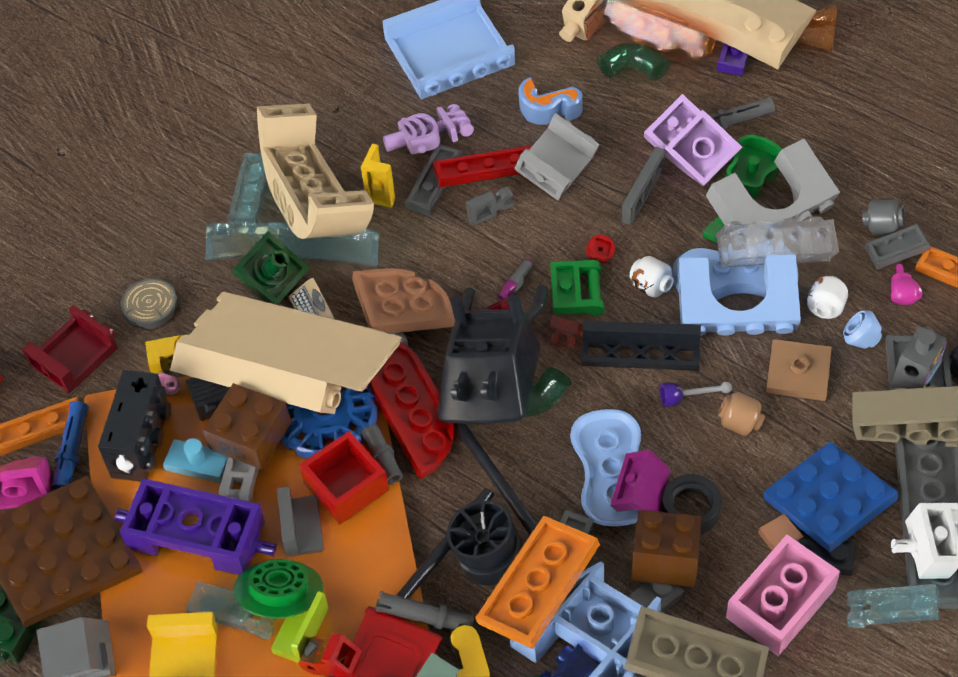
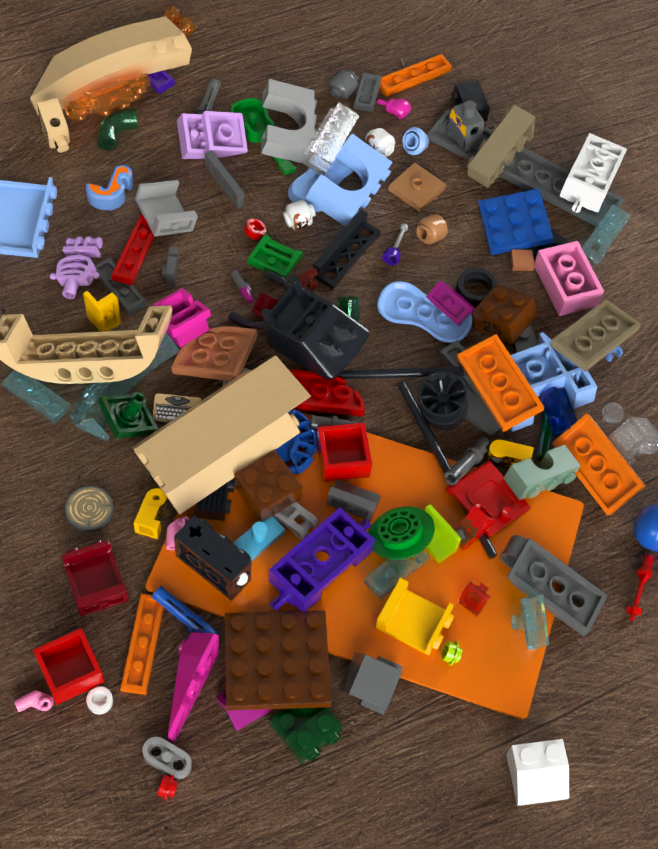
camera: 70 degrees left, 5 degrees up
(417, 244) = (187, 318): none -> dark pink plate

